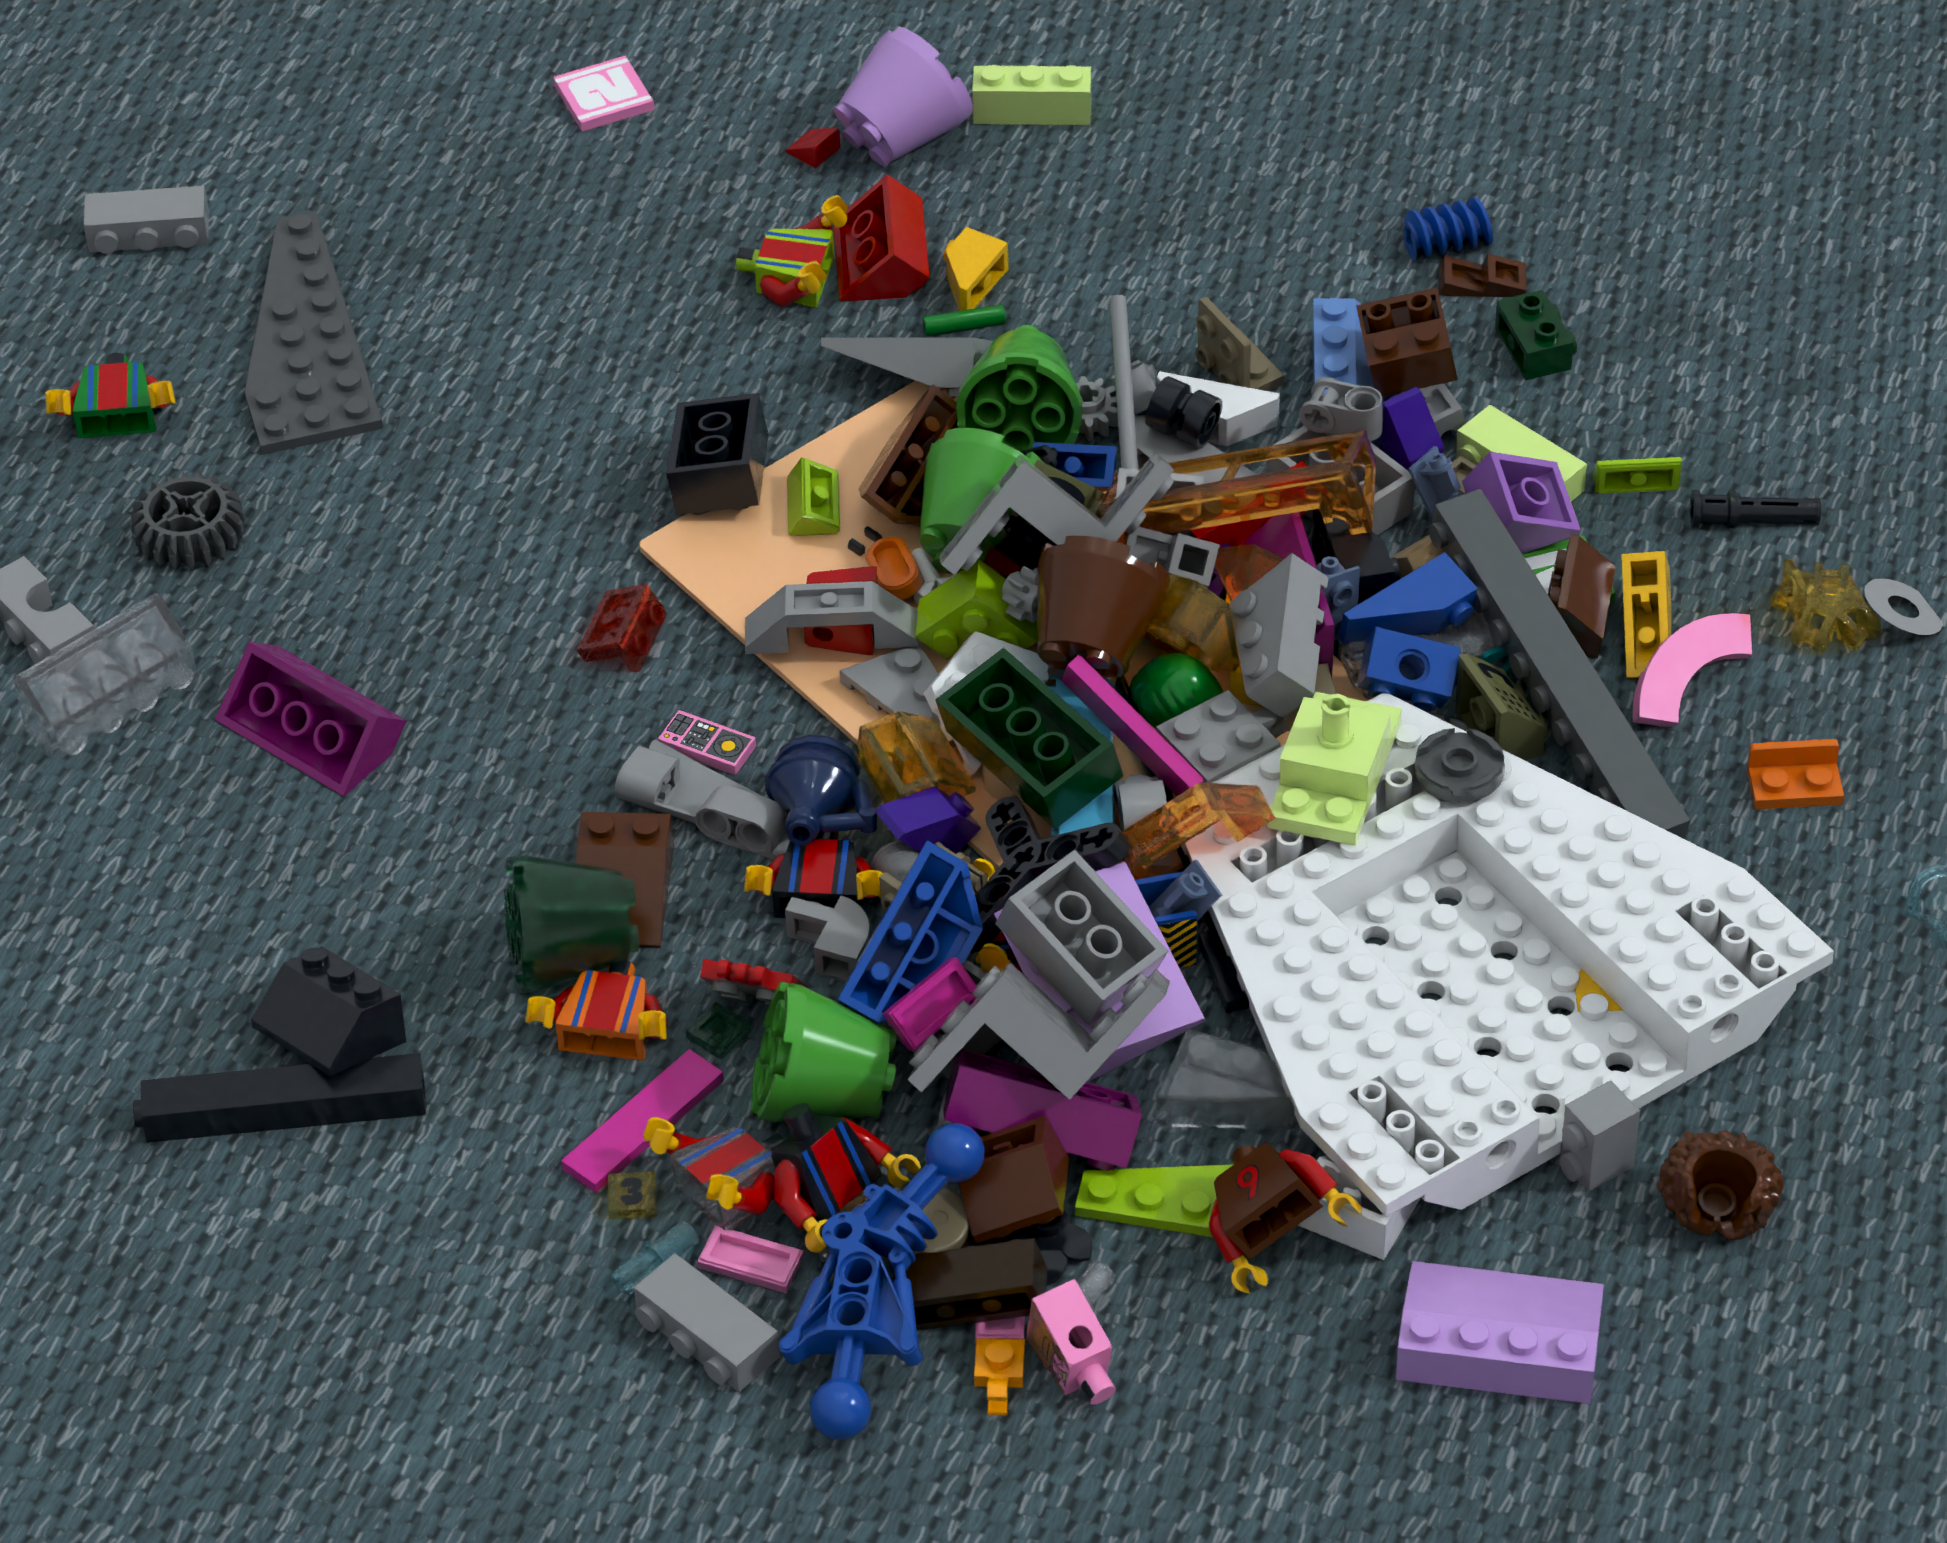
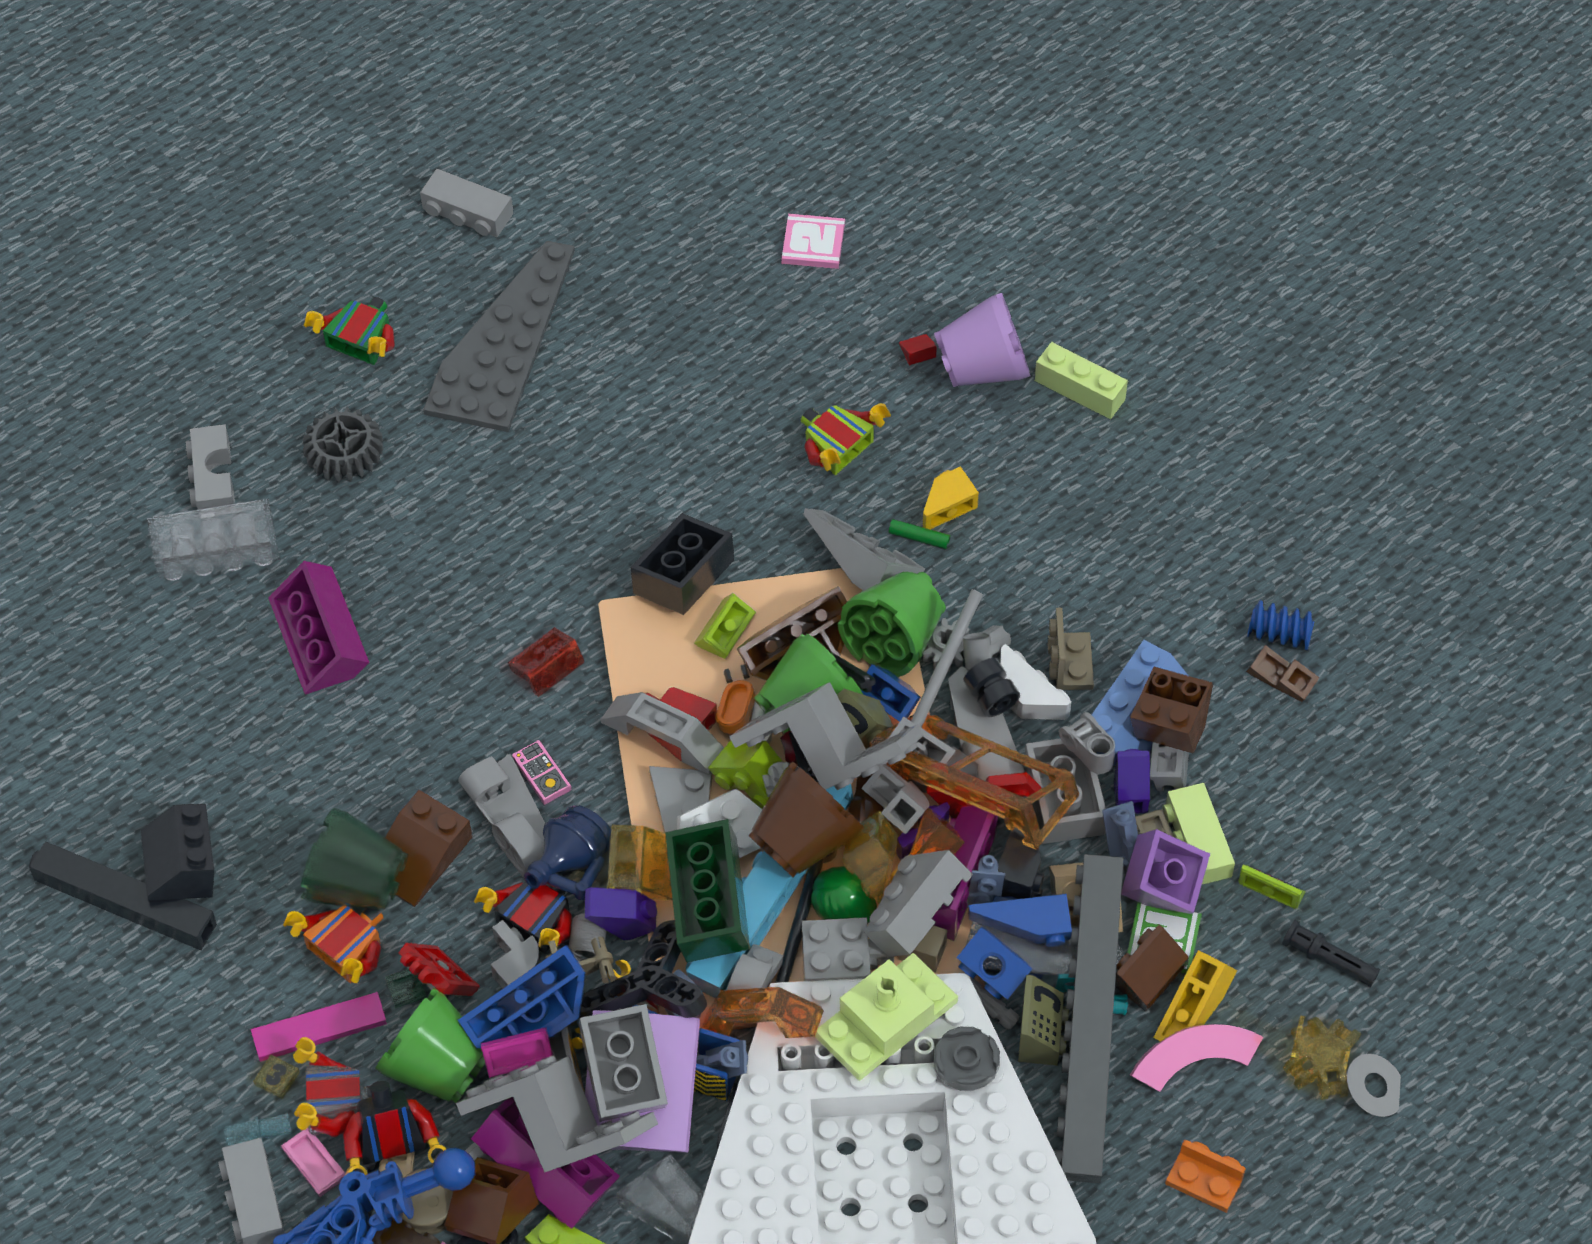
camera: 30 degrees right, 10 degrees up
(882, 244) = (904, 450): red slope -> none
(1130, 726) = (779, 917): dark pink tile -> none
(1535, 334) = (1280, 740): dark green brick -> none

